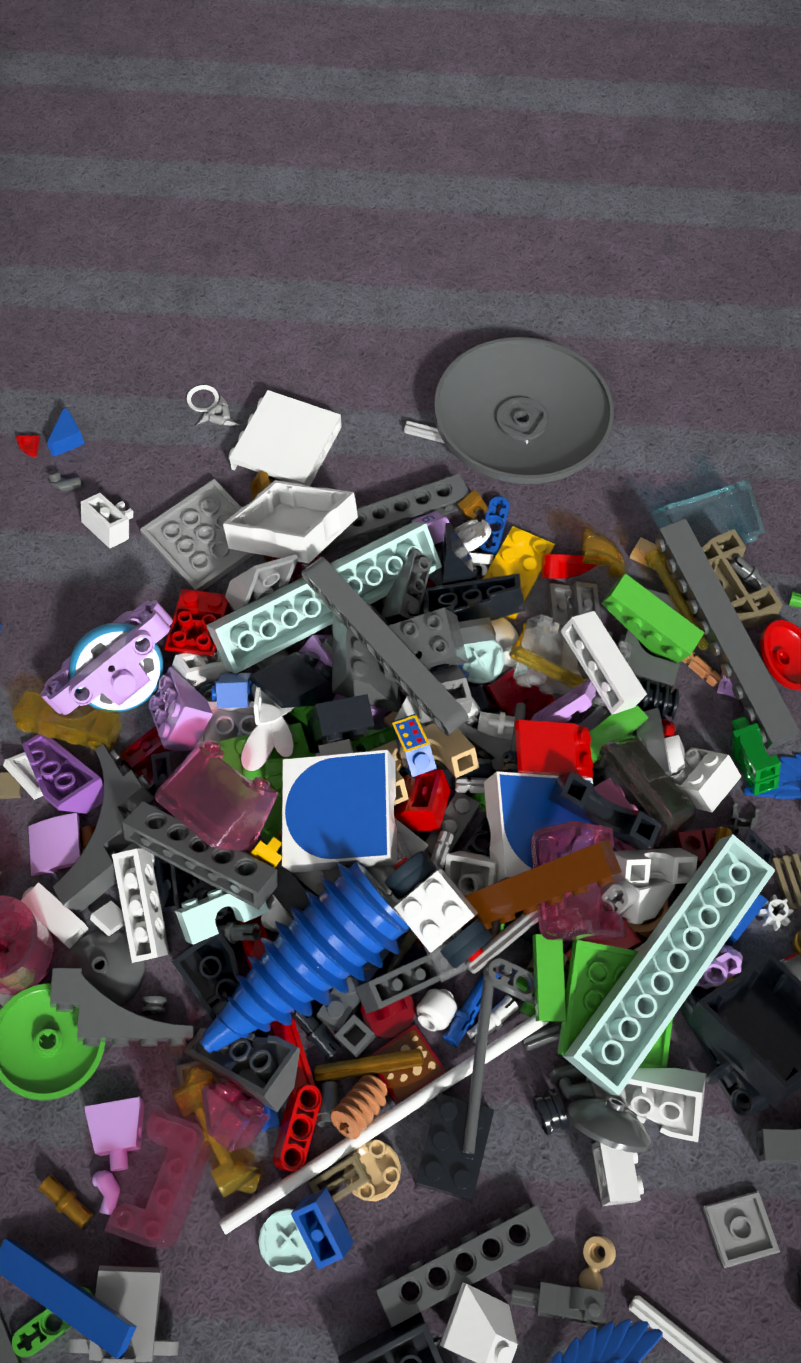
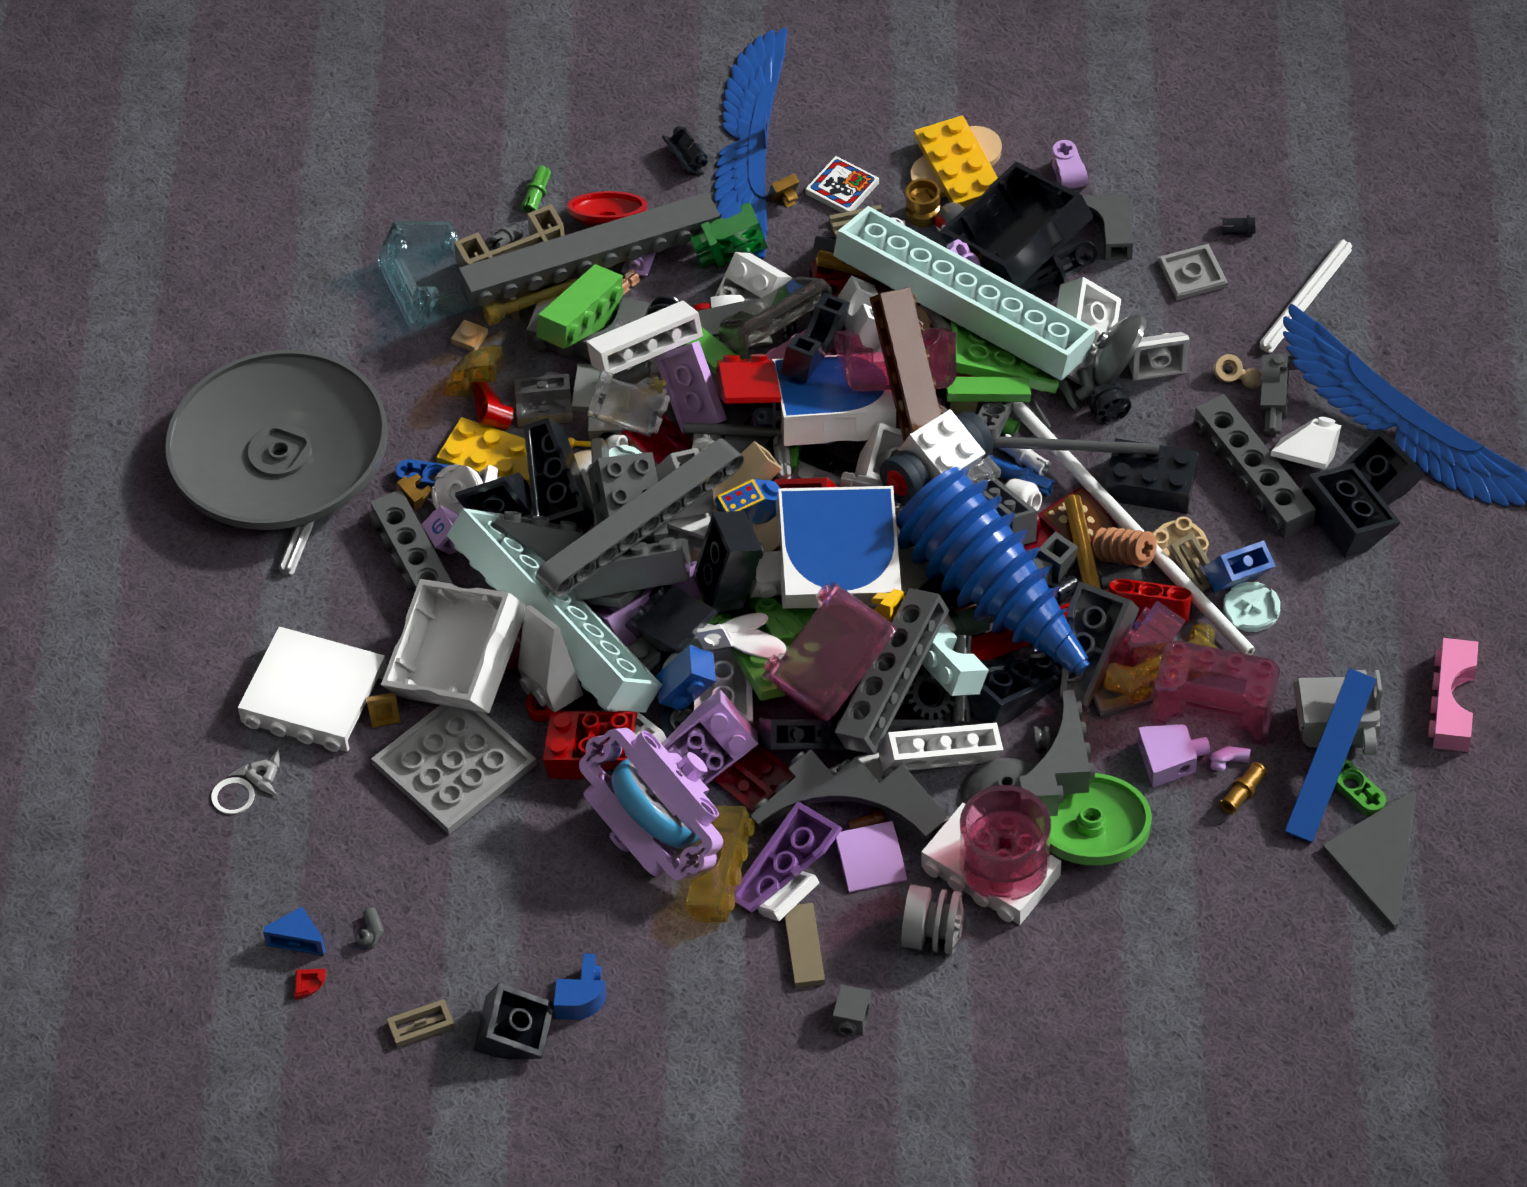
camera: 90 degrees left, 10 degrees down
(105, 520) = (438, 862): white brick -> none
(108, 918) = (951, 791): white tile -> none
(734, 818) = (794, 264): dark grey piece -> none

